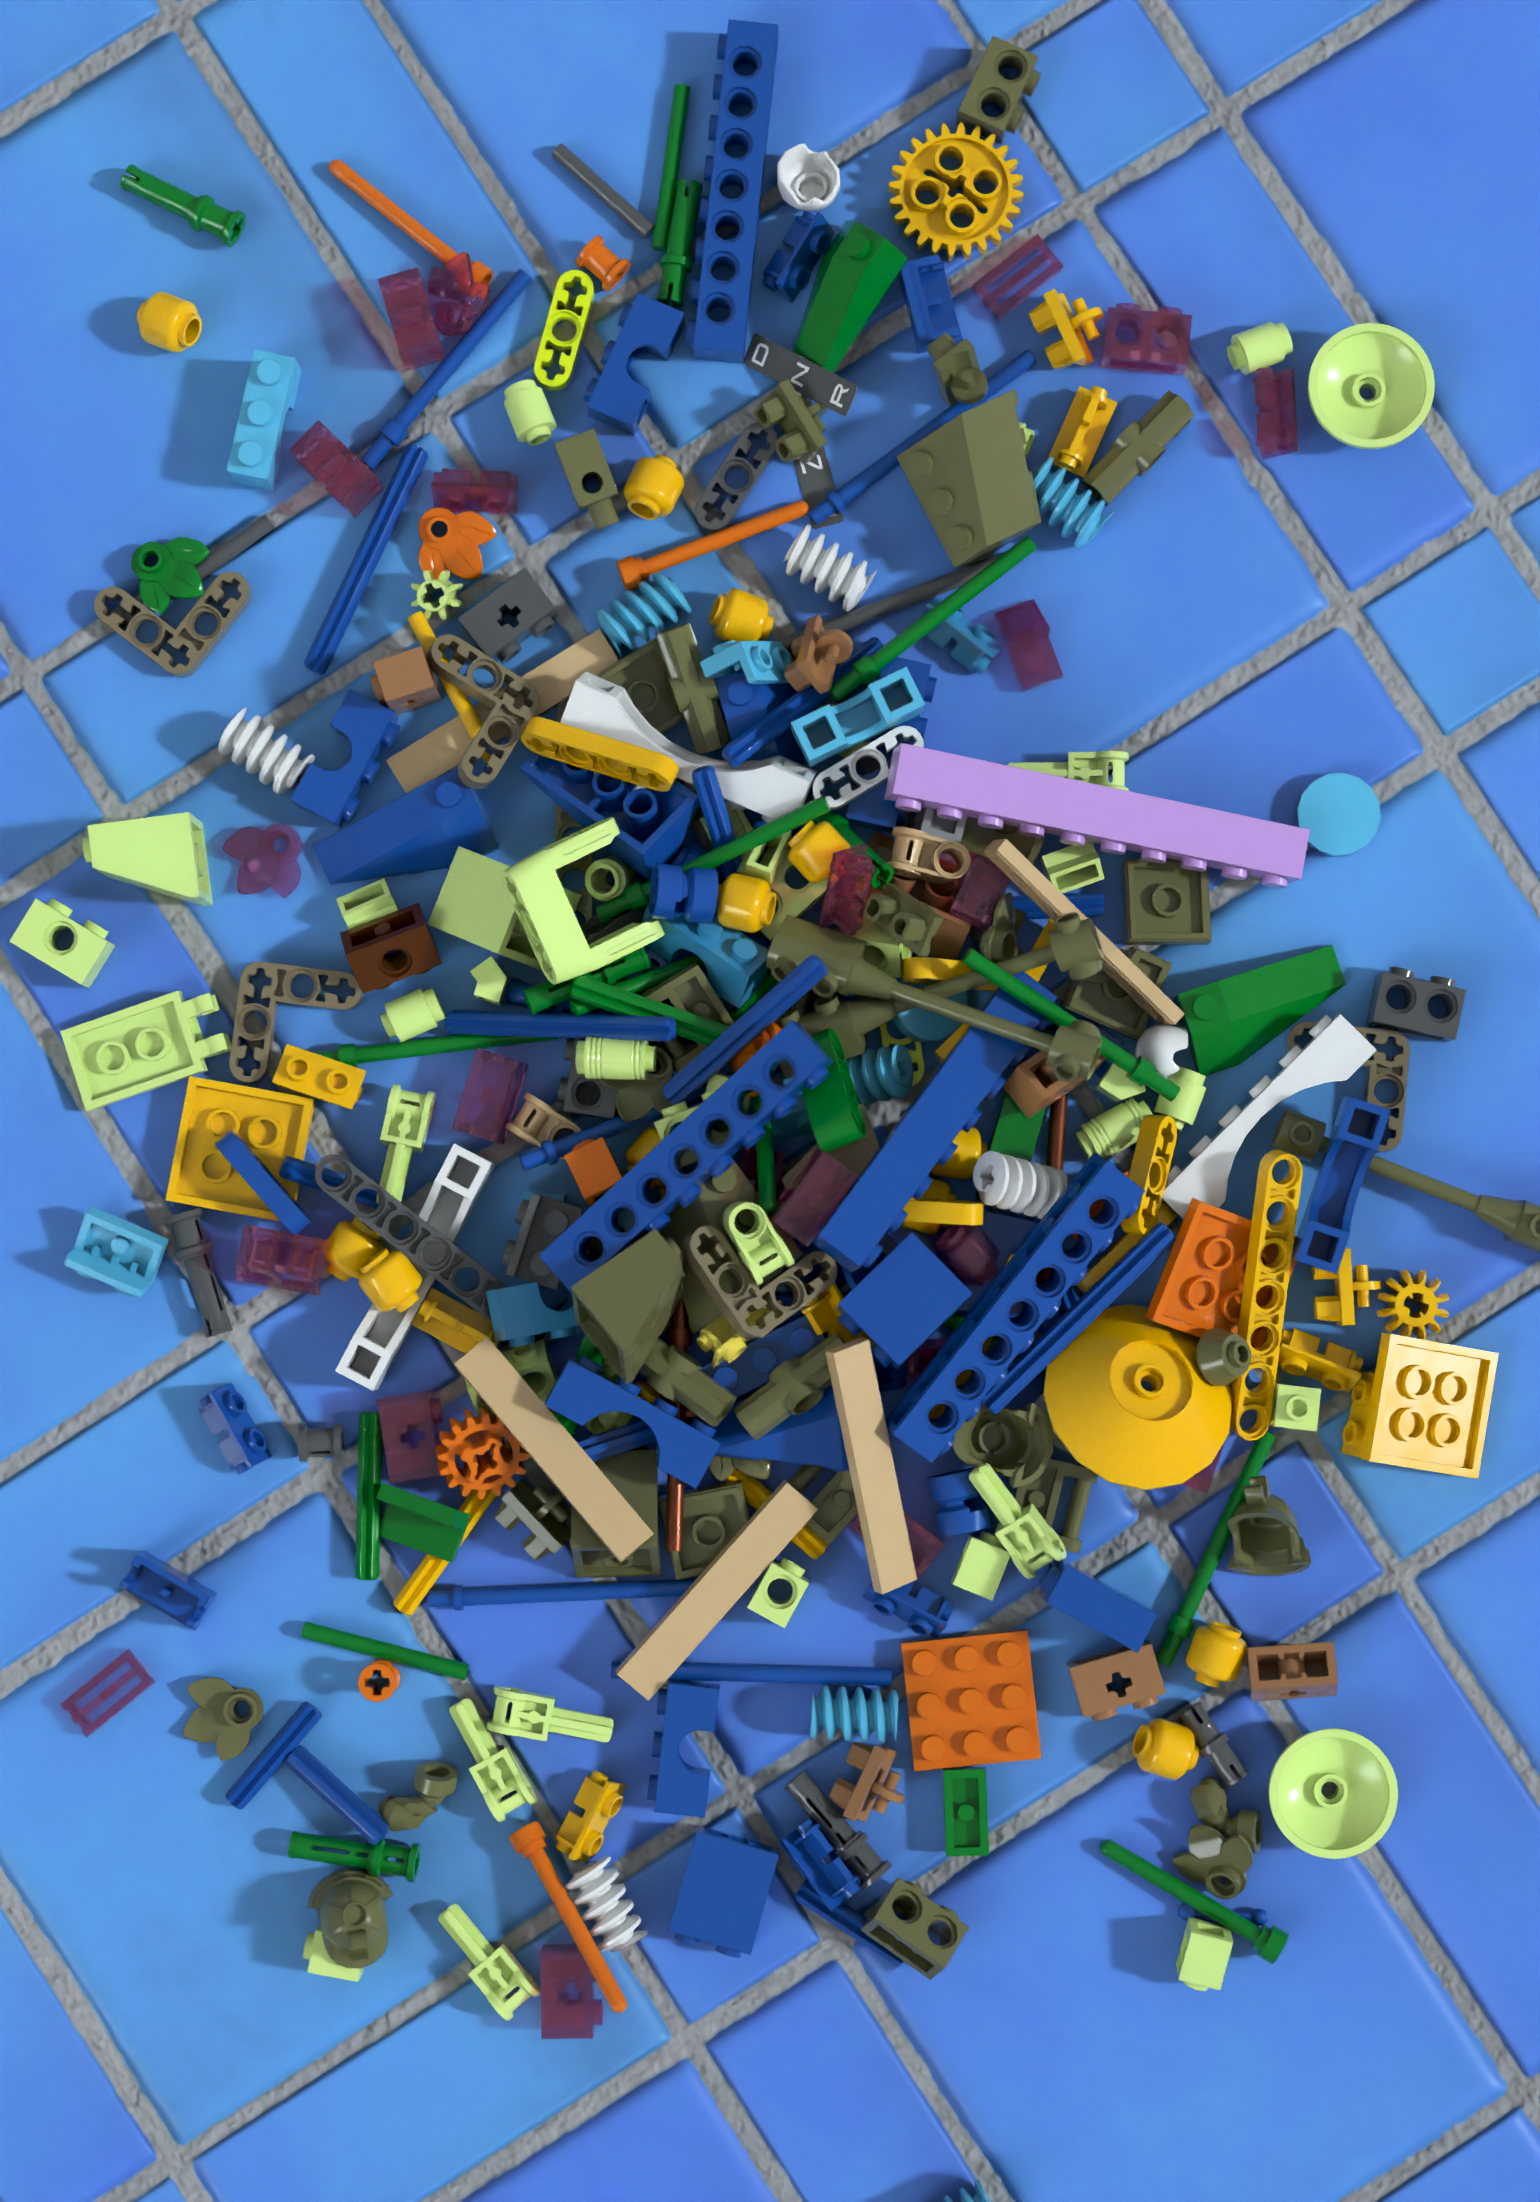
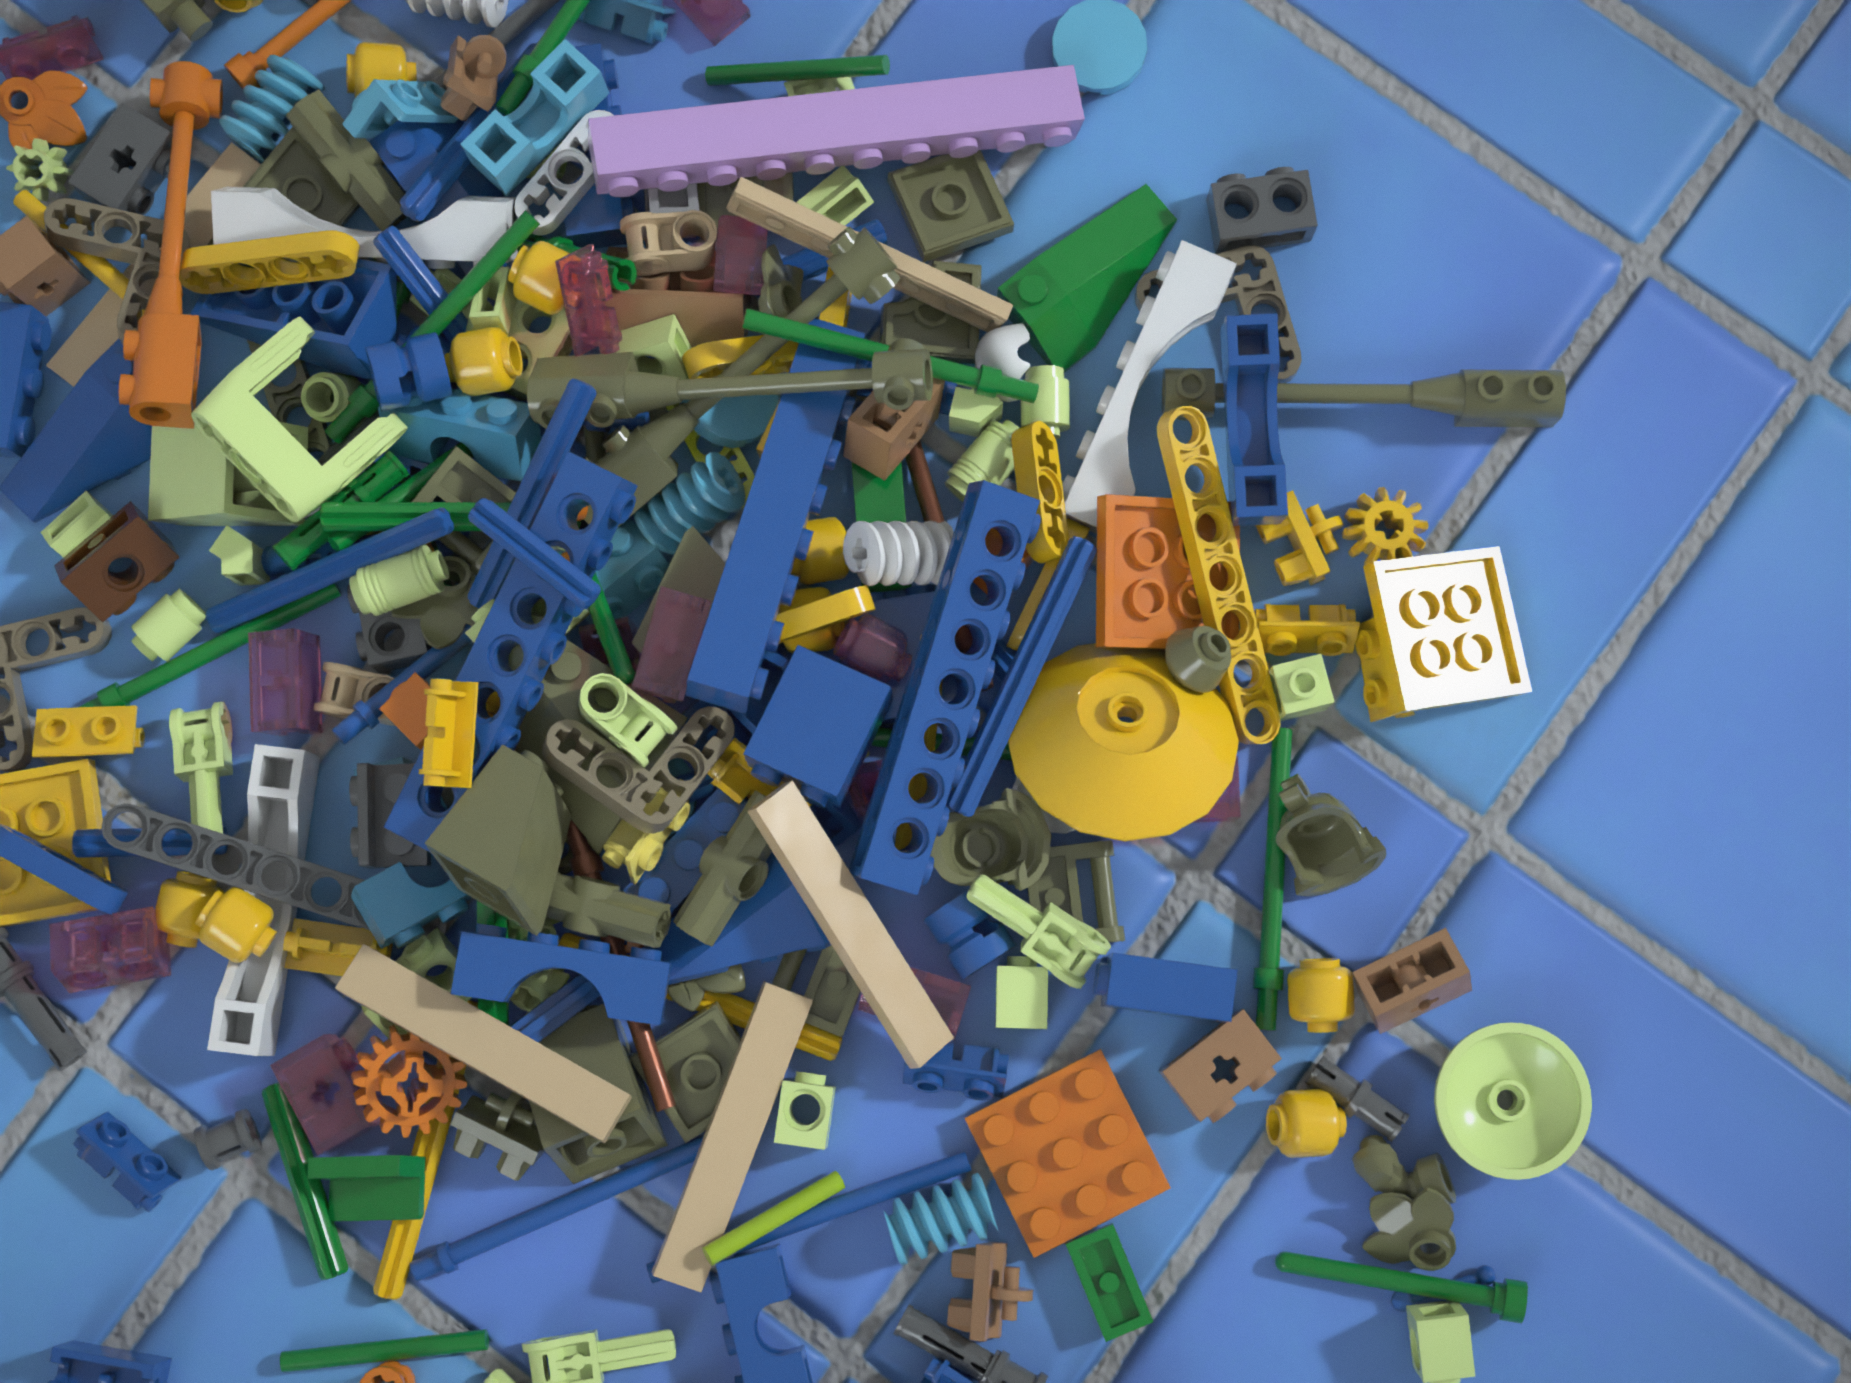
camera: 20 degrees left, 5 degrees down
(498, 794) = (166, 340): none -> orange bar
(619, 1207) = (450, 733): none -> yellow hinge
(724, 1664) = (773, 1218): none -> lime bar
(736, 1092) = (534, 553): none -> blue axle
(833, 1103) = (656, 533): green beam -> none
(903, 918) = (662, 309): olive hips -> none
(1083, 747) = (798, 70): none -> green bar

